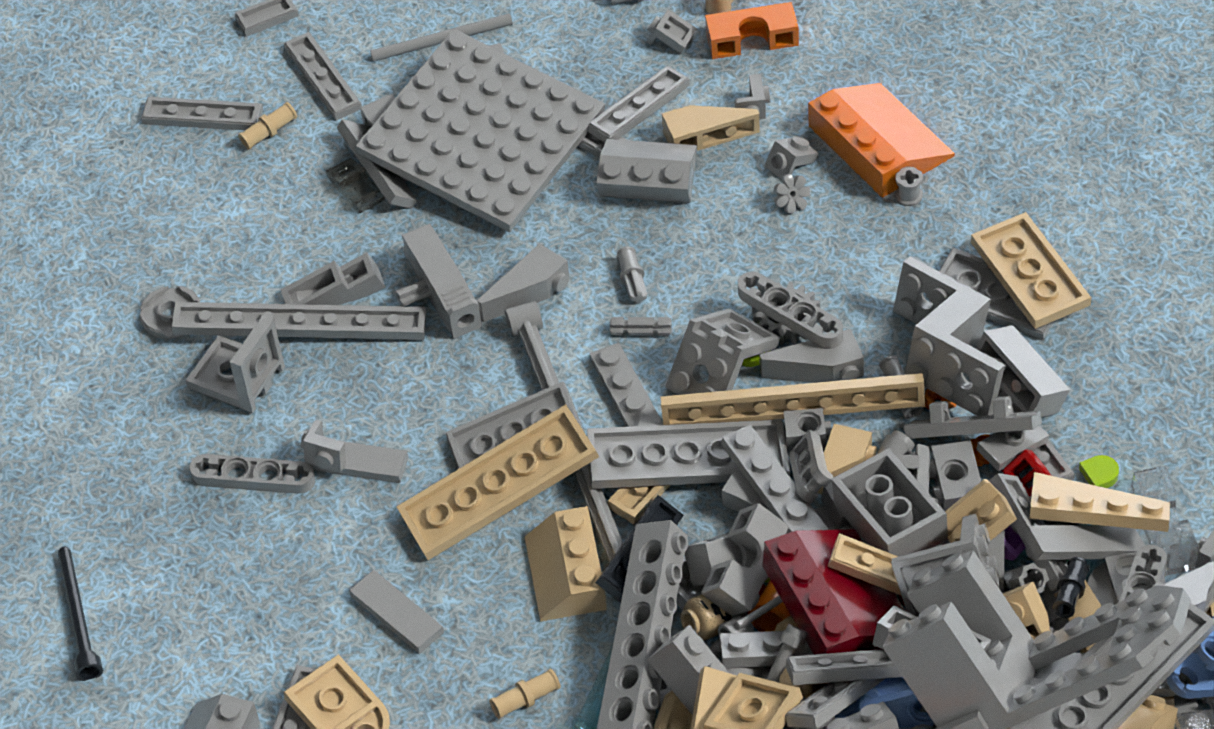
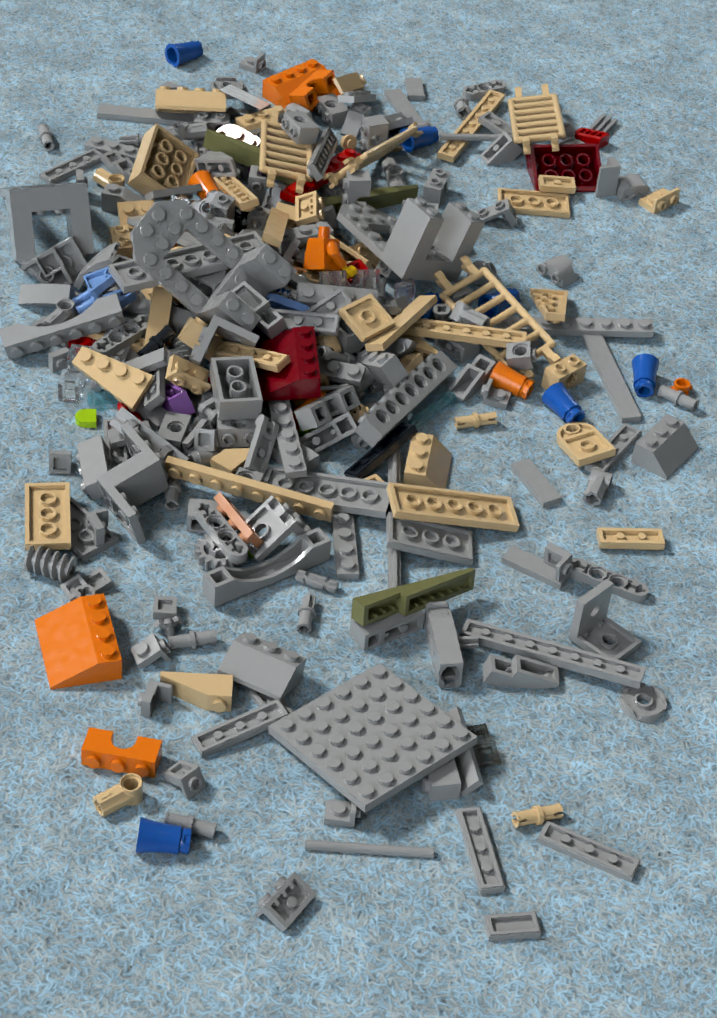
camera: 170 degrees left, 10 degrees down
(231, 552) = (630, 538): none -> tan plate
(300, 633) = (597, 485): none -> light grey piece
(497, 298) = (411, 597): none -> olive slope
(750, 252) = (231, 583): none -> light grey arch
(751, 188) = (192, 639): none -> light grey pin
(774, 324) = (237, 521): none -> plate
(808, 216) = (164, 607): none -> light grey plate
(924, 215) = (98, 580): none -> light grey slope
(957, 267) = (97, 525): none -> light grey bracket
(978, 212) = (50, 565): none -> light grey piece
(1079, 372) = (60, 462): none -> light grey tile

